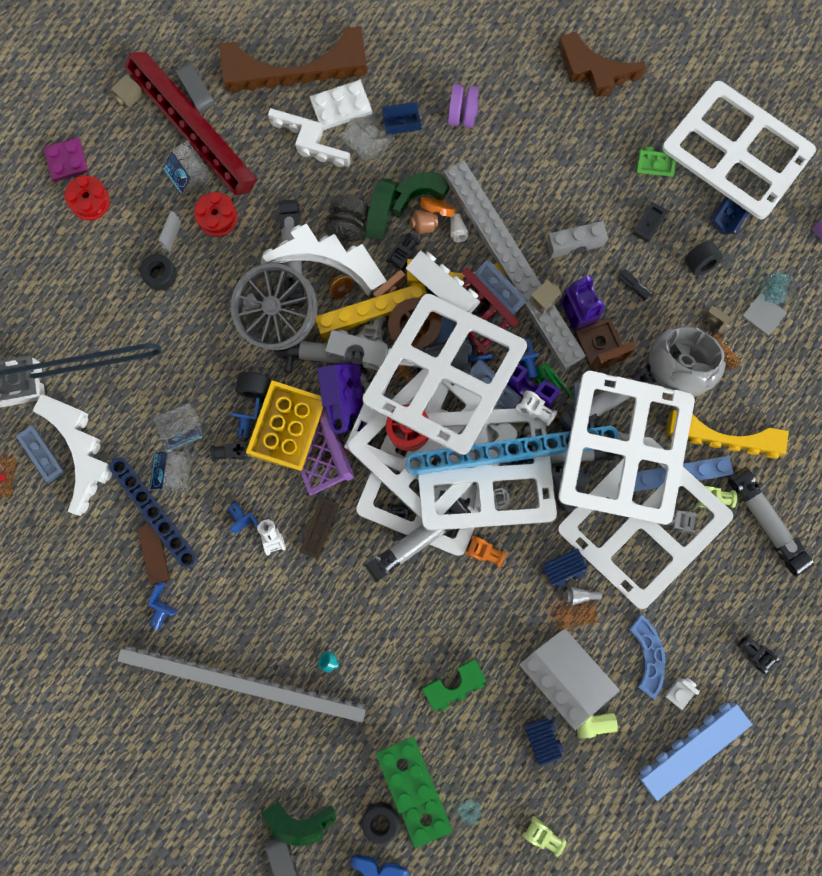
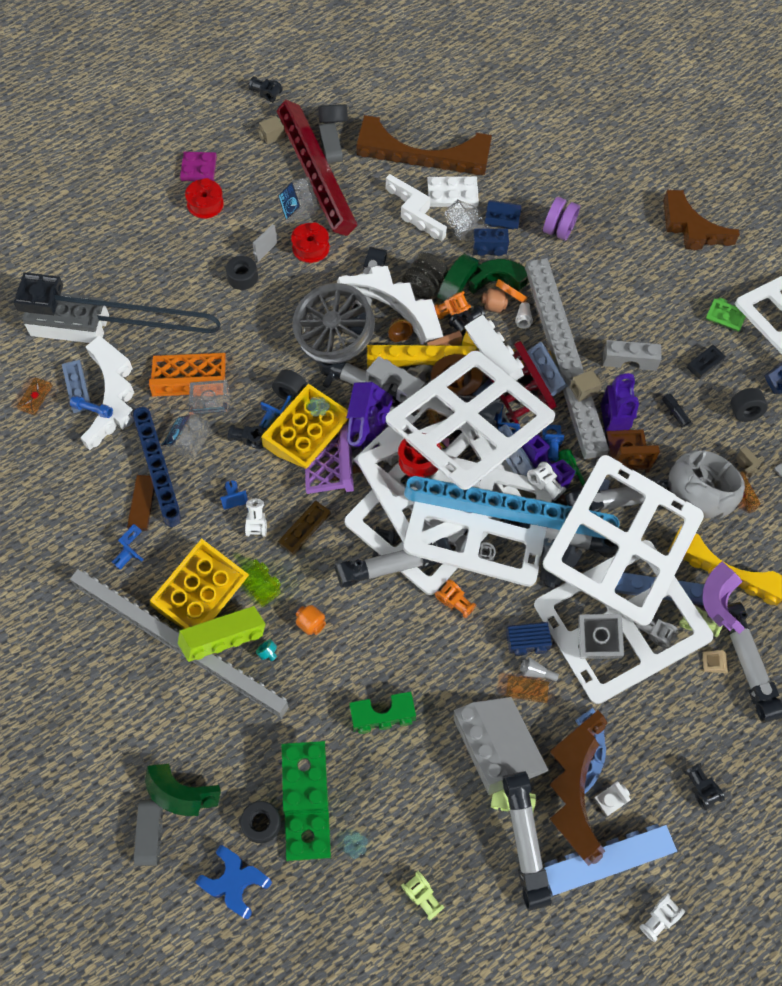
camera: 15 degrees right, 15 degrees down
(78, 476) = (103, 410): none -> blue bar
(104, 40) = (266, 88): none -> black connector
(146, 418) = (181, 386): none -> orange fence
(185, 51) = (332, 113): none -> black tyre
(243, 626) = (198, 587): none -> yellow slope
(281, 665) = (221, 633): none -> lime brick
(290, 407) = (318, 406): none -> clear light blue plant
(297, 598) = (261, 584): none -> clear neon green bracket
(358, 619) = (310, 620): none -> orange head
(385, 242) = (454, 304): none -> orange connector
(399, 154) = (490, 241): none -> dark blue bracket
(542, 740) = (453, 797): dark blue brick -> none
(631, 549) = (600, 636): none -> light grey brick
(631, 785) = (531, 872): none -> piece
(655, 732) = (575, 757): none -> reddish brown arch
(724, 473) = (716, 594): none -> medium lavender arch
(737, 531) = (715, 661): none -> tan slope
(754, 783) = (663, 917): none -> white connector

